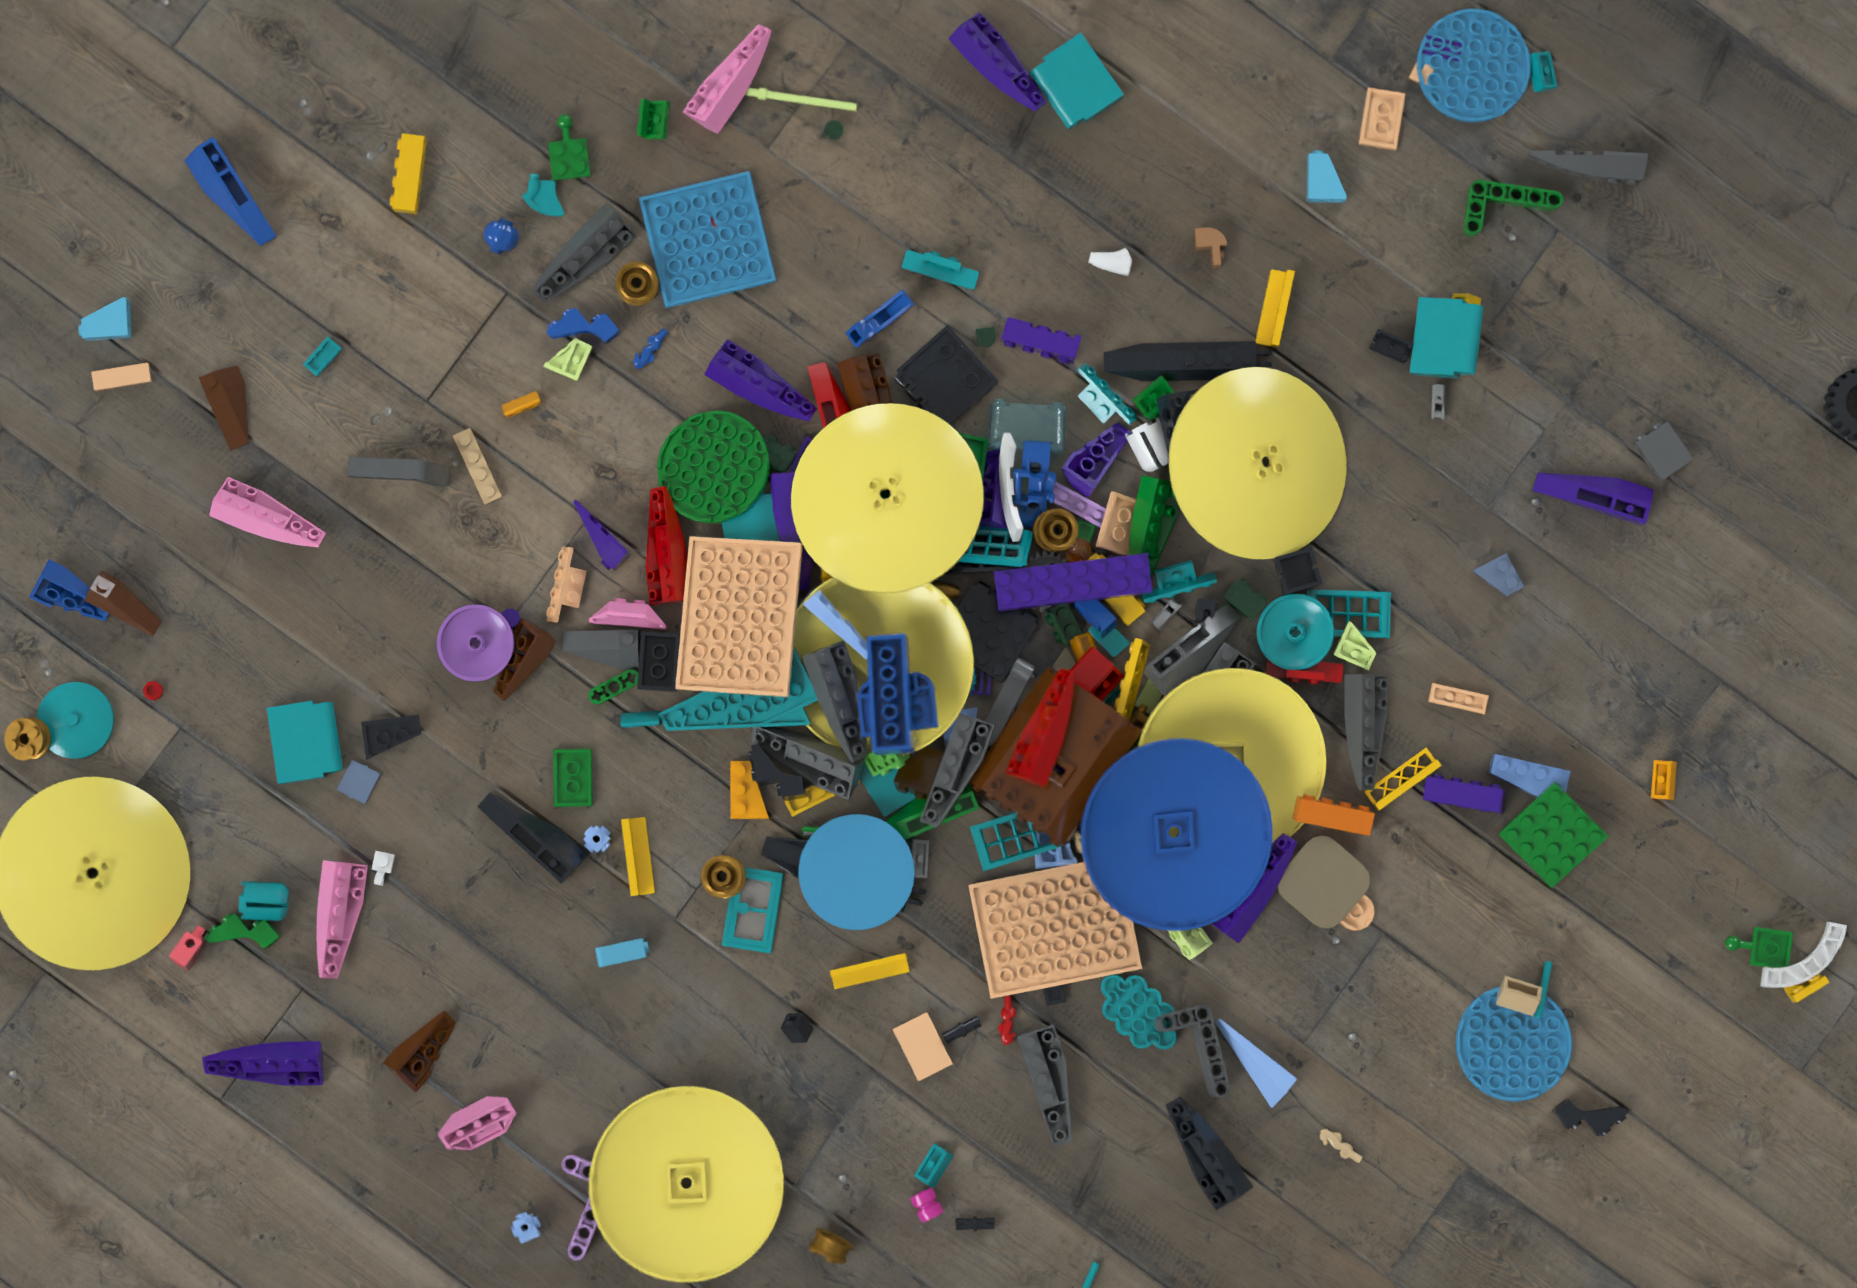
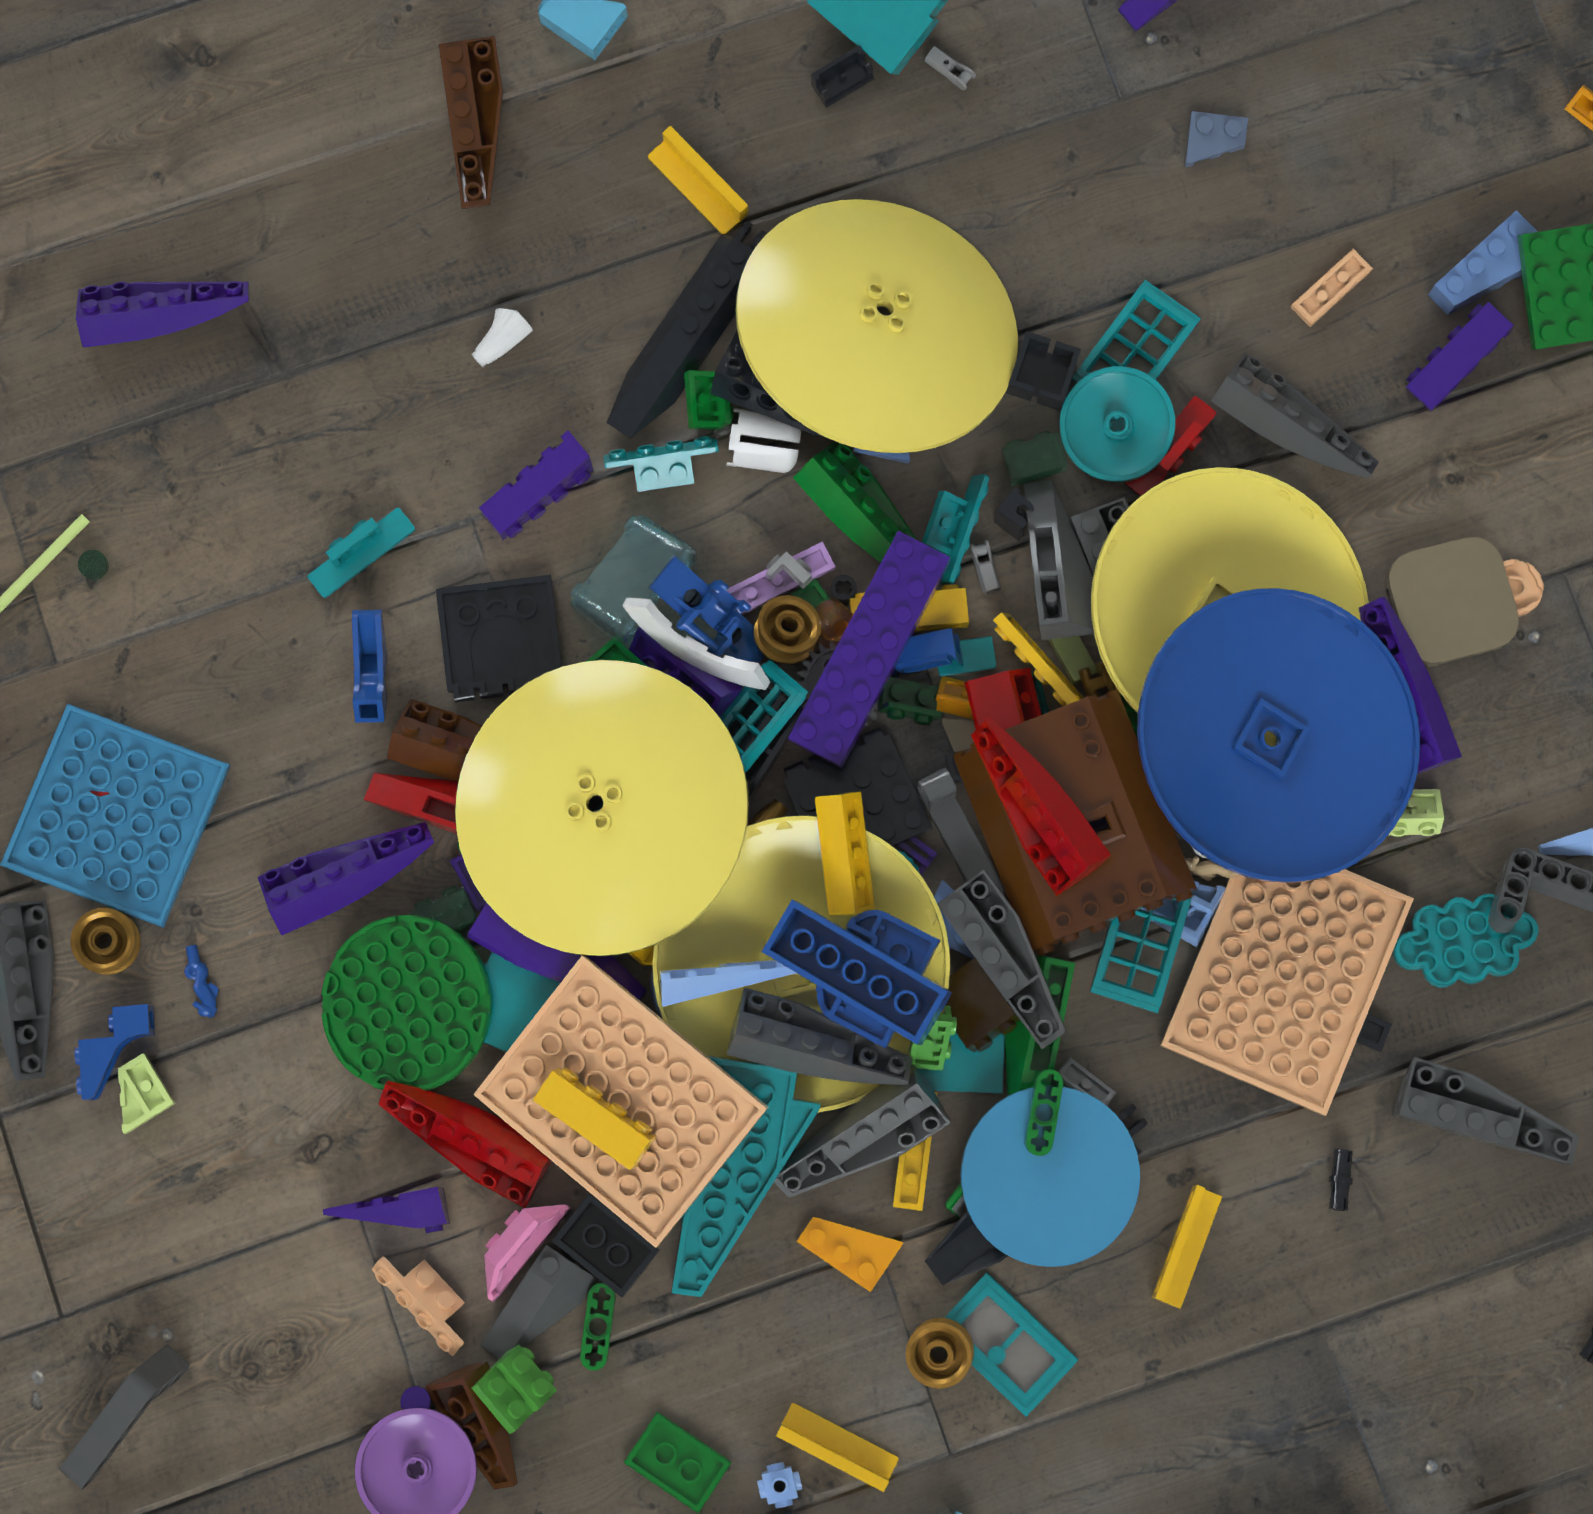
camera: 55 degrees left, 5 degrees down
(477, 466) = (191, 1308): tan plate -> none
(521, 404) = (153, 1196): light orange slope -> none
(552, 665) = (514, 1388): none -> bright green plate
(640, 719) = (662, 1321): teal slope -> none
(720, 609) = (594, 1117): none -> yellow brick
(766, 773) = (845, 1203): black arch -> none
(797, 1027) = (1198, 1391): black panel -> none
(871, 846) = (1035, 1102): none -> green beam
(922, 1046) = (1329, 1245): light nougat tile -> none
(926, 1204) = (1543, 1380): dark pink wheel -> none
(933, 1165) = (1492, 1336): teal slope -> none
(951, 645) = (844, 853): none -> yellow panel
(985, 336) = (484, 554): clear green tile -> none
(1005, 1028) = (1374, 1123): red animal -> none
(1076, 82) = (250, 230): teal piece -> none
(1090, 463) = (732, 527): dark purple wedge -> none
(1092, 512) = (797, 570): none -> light grey bracket
(1116, 524) = (832, 550): light nougat tile -> none
(1211, 239) = (561, 199): medium nougat brick -> none
(1228, 157) = (474, 114): none -> reddish brown wedge
(1333, 815) = (1378, 532): orange brick -> none
(1354, 648) = (1185, 367): yellowish green wing -> none
(1410, 782) = (1398, 416): yellow fence -> none

